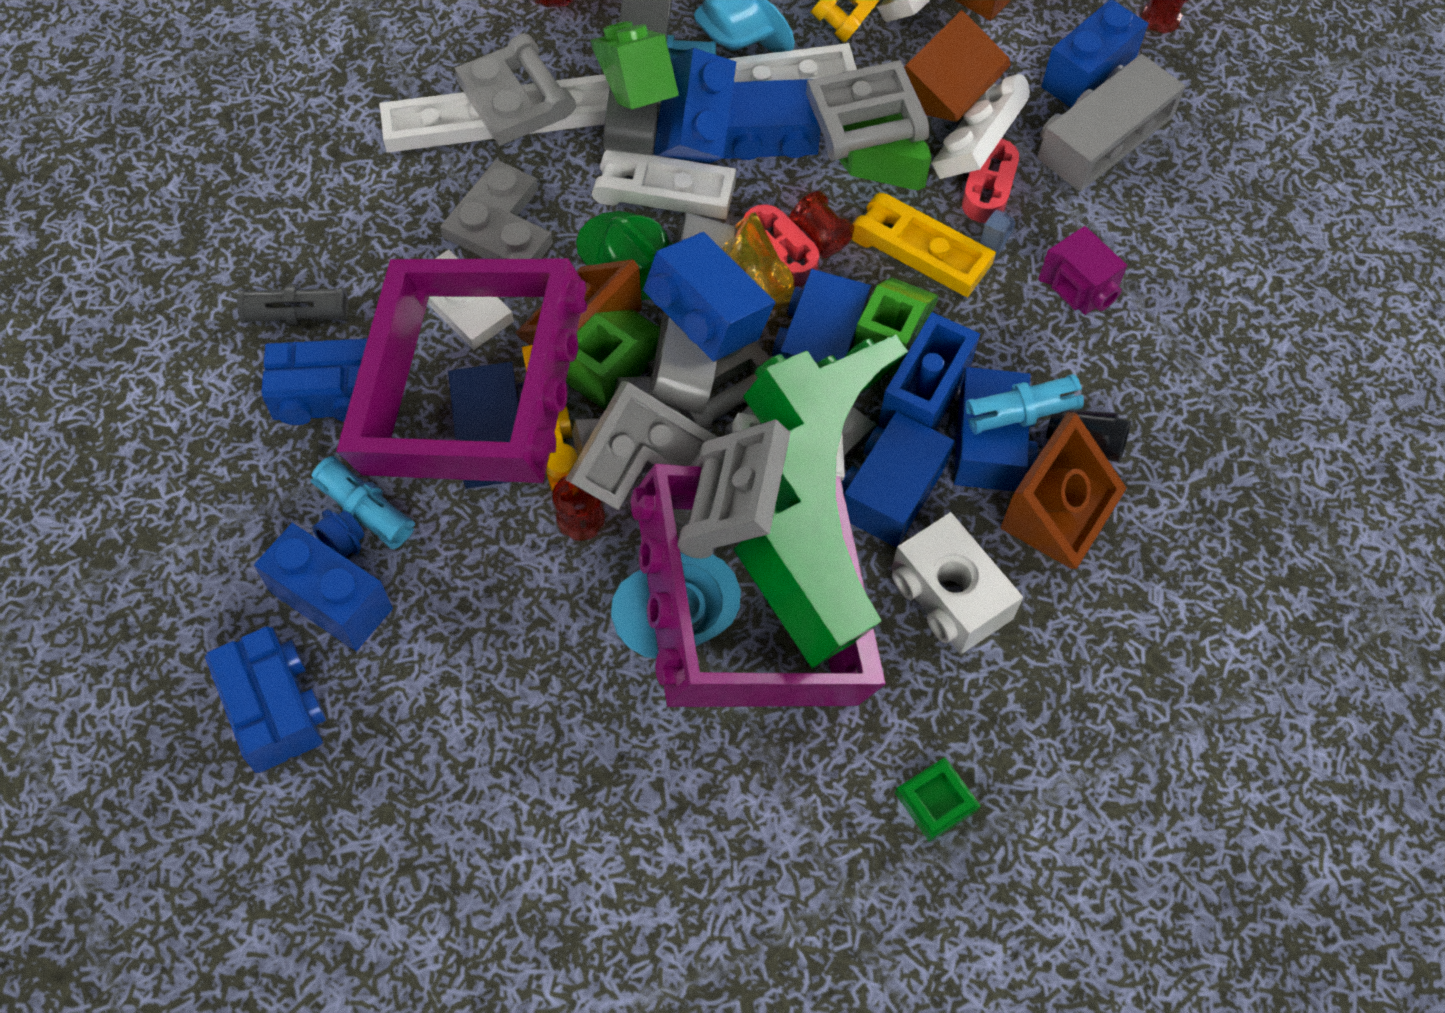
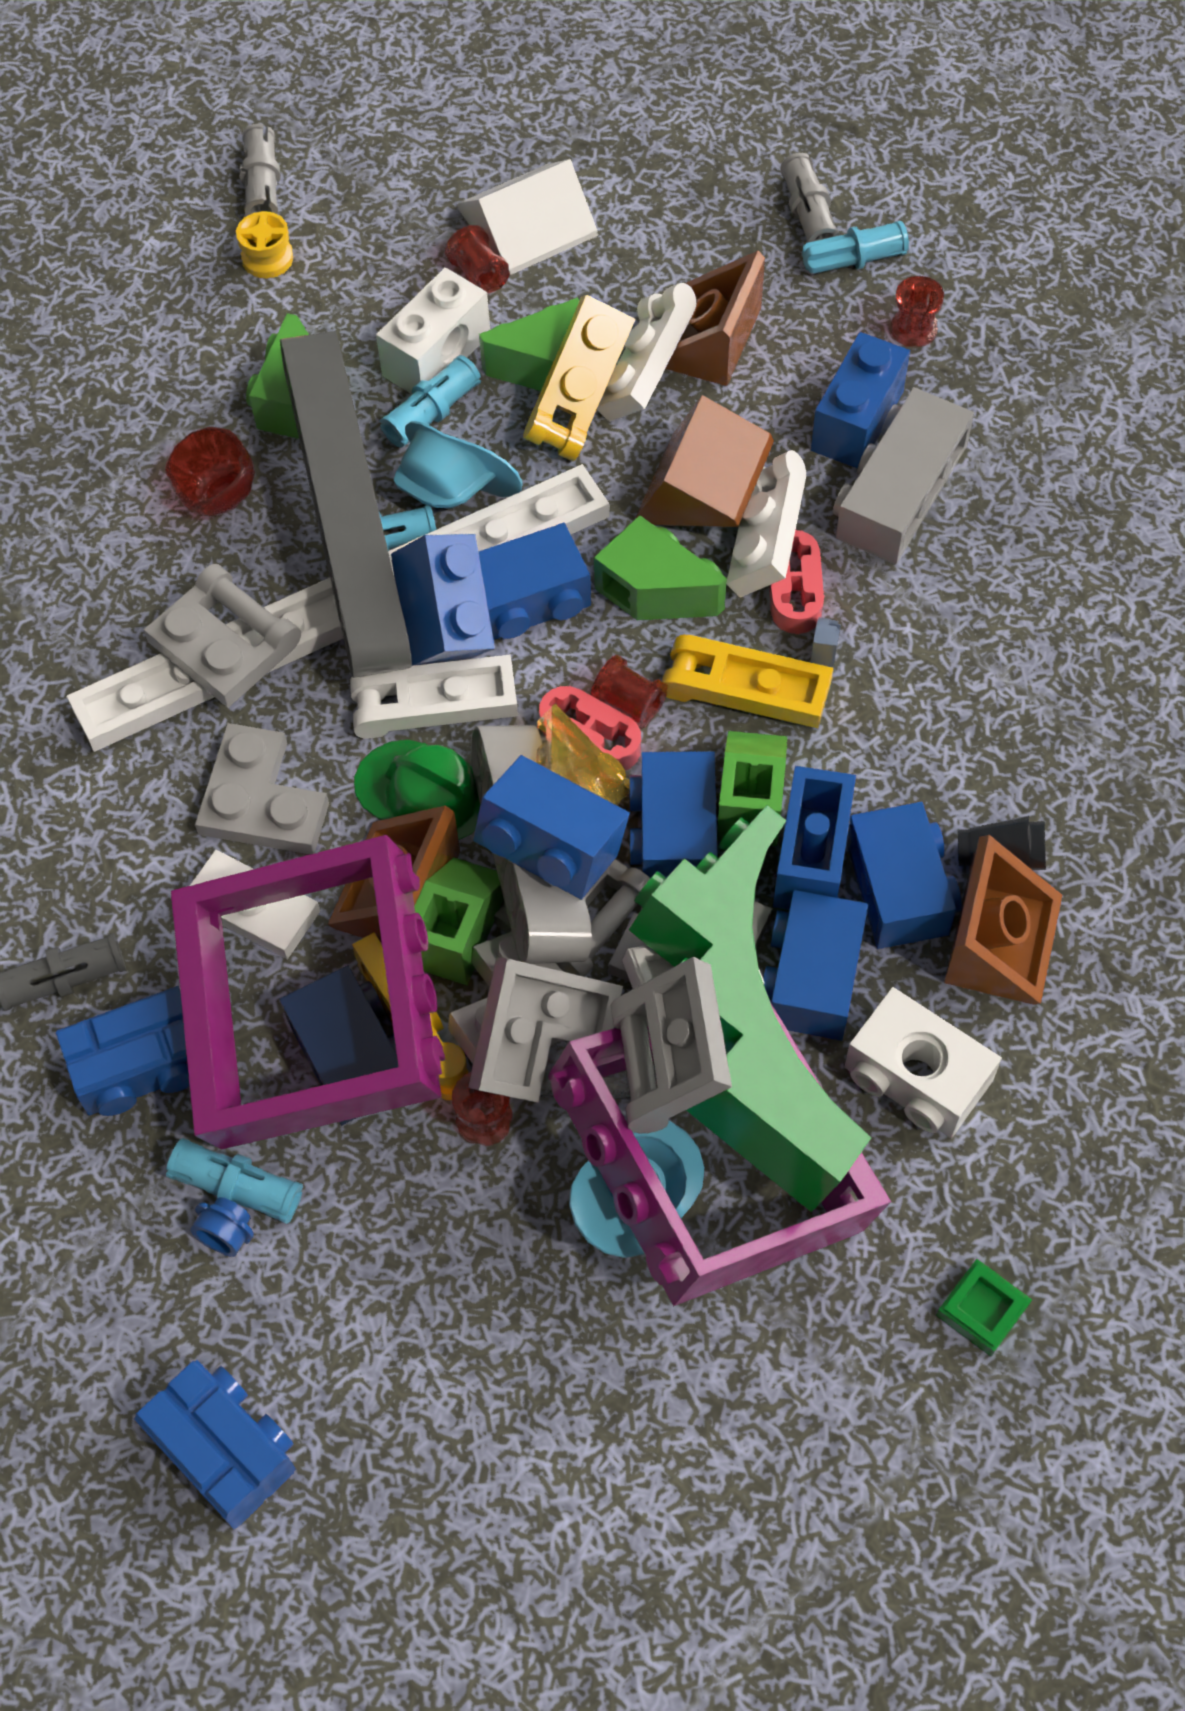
camera: 15 degrees left, 0 degrees up
(324, 586) = (233, 1293): blue brick -> none
(635, 64) = (365, 574): bright green slope -> none
(862, 97) = (631, 531): light grey plate -> none
(1024, 404) = (930, 841): medium azure pin -> none
(1084, 271) = (936, 662): magenta window -> none

